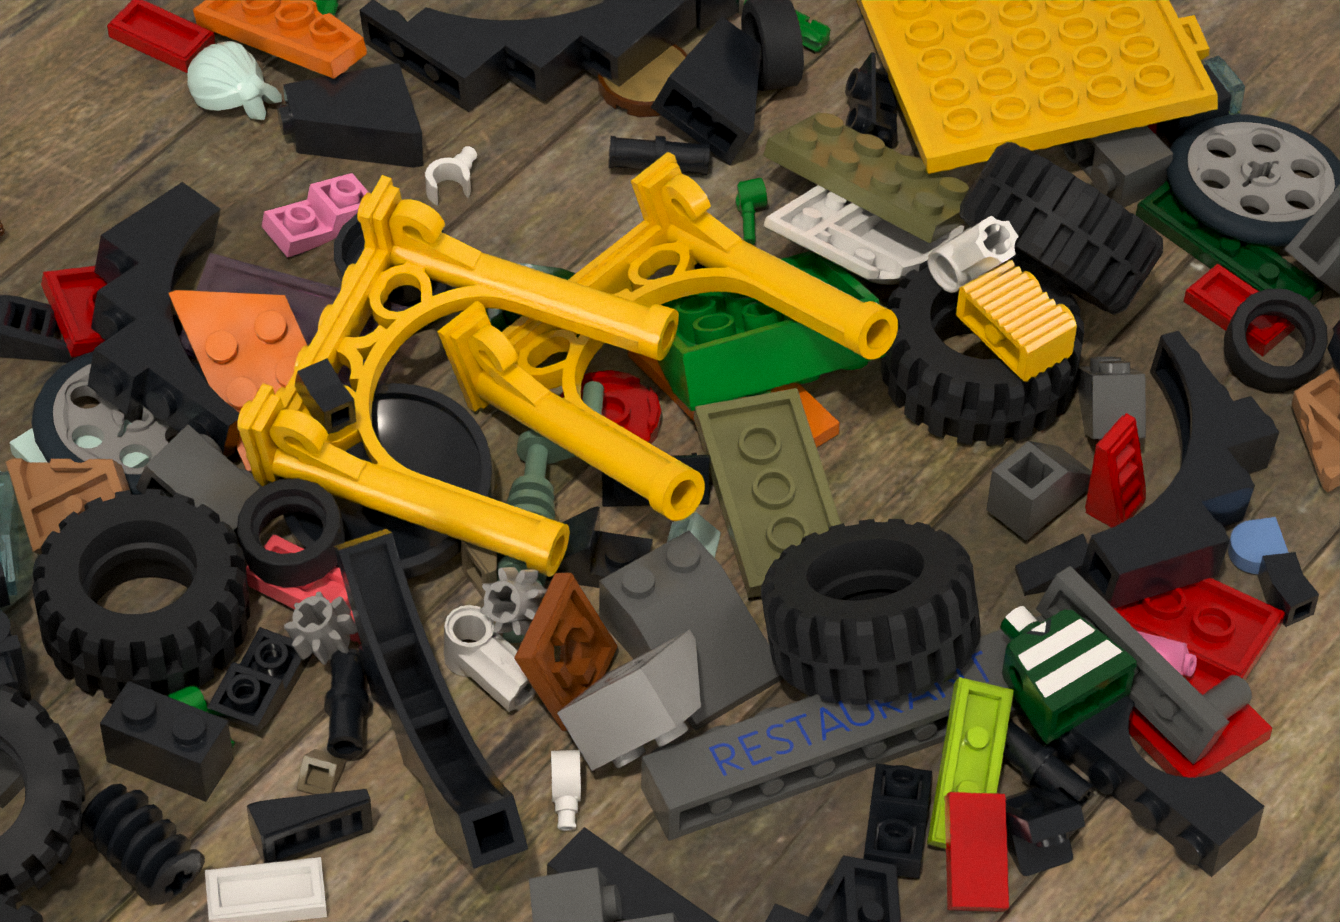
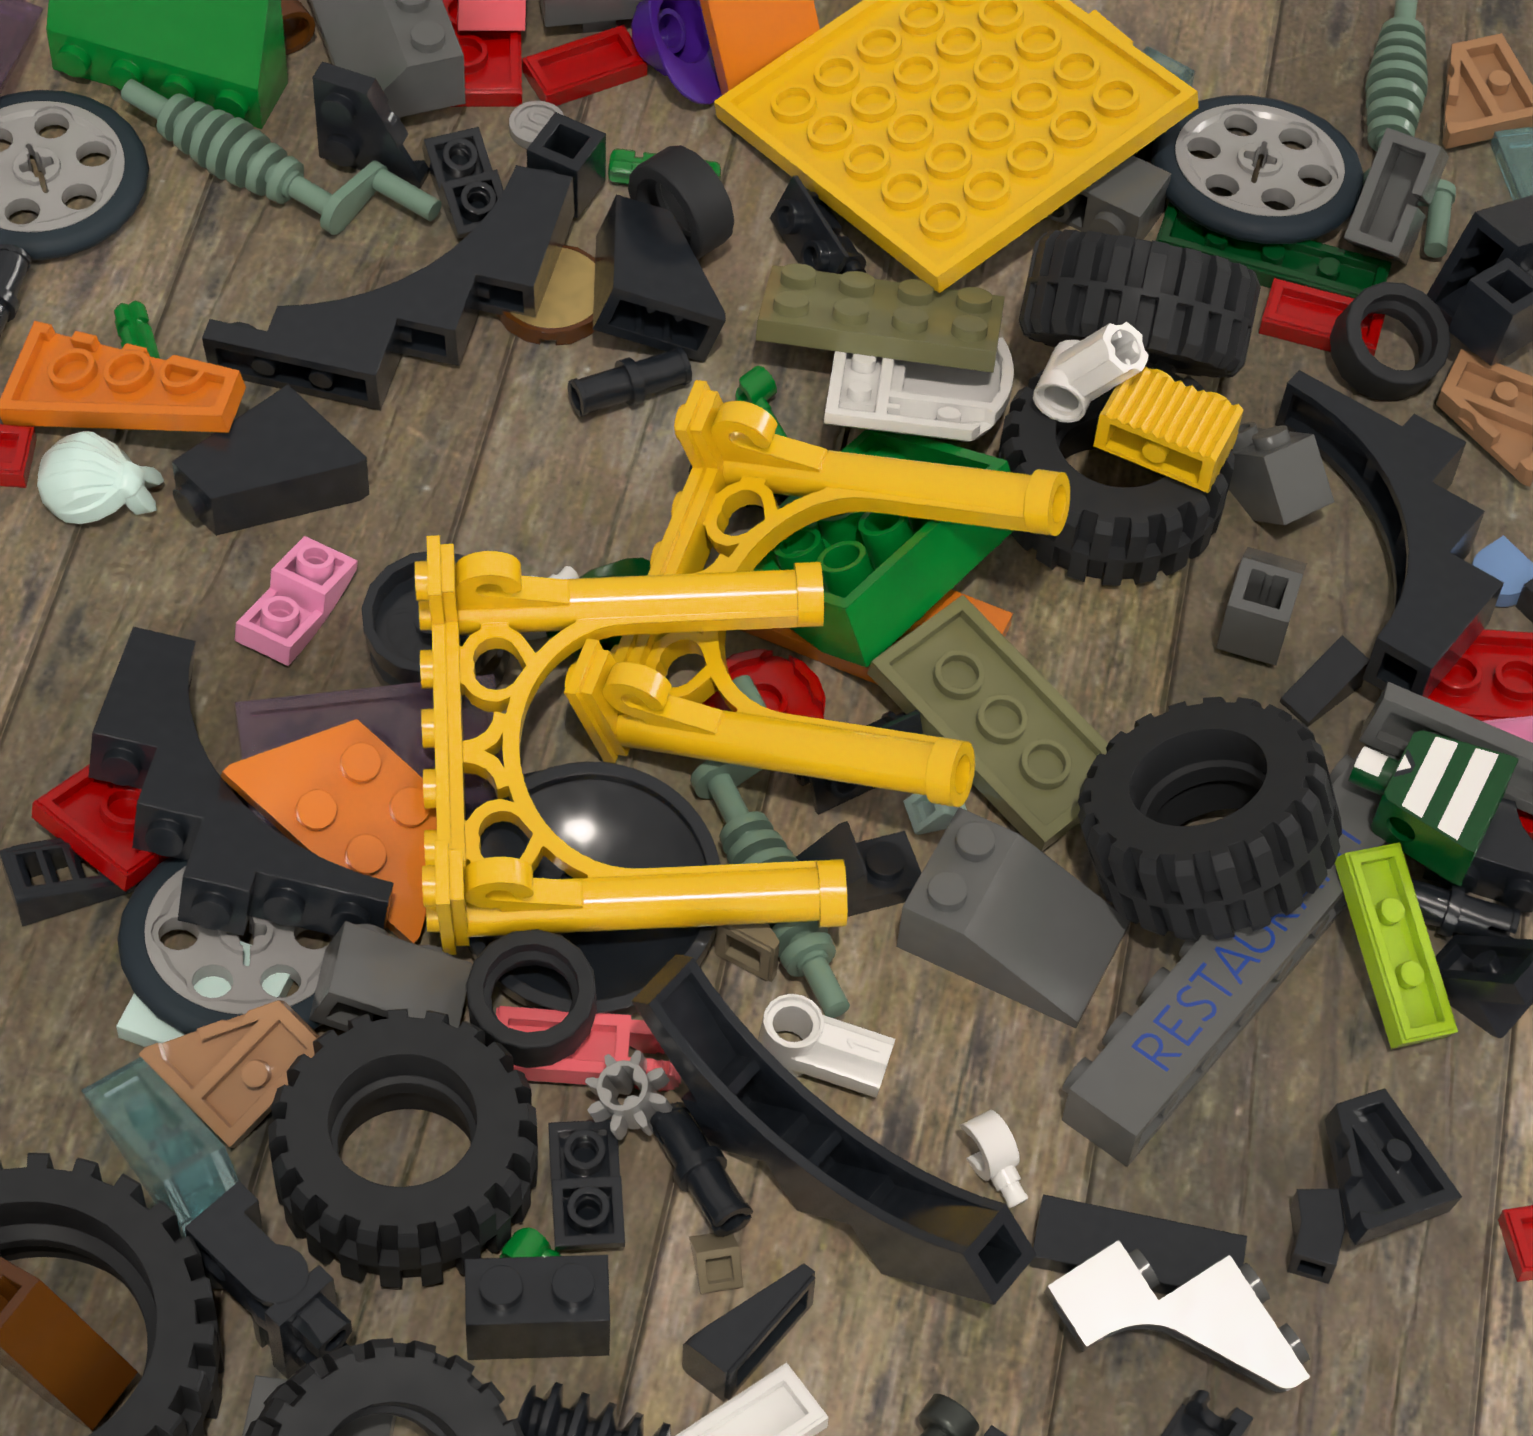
camera: 30 degrees left, 5 degrees up
(325, 396) = (498, 823): black piece -> none
(450, 169) = (413, 485): white piece -> none
(513, 600) = (820, 976): light grey gear -> none
(586, 646) = (914, 1004): dark orange piece -> none
(636, 704) = (1026, 1028): light grey slope -> none
(898, 817) = (1344, 1034): black slope -> none
(976, 852) = (1456, 1036): red tile -> none
(1117, 475) = (1335, 559): red slope -> none

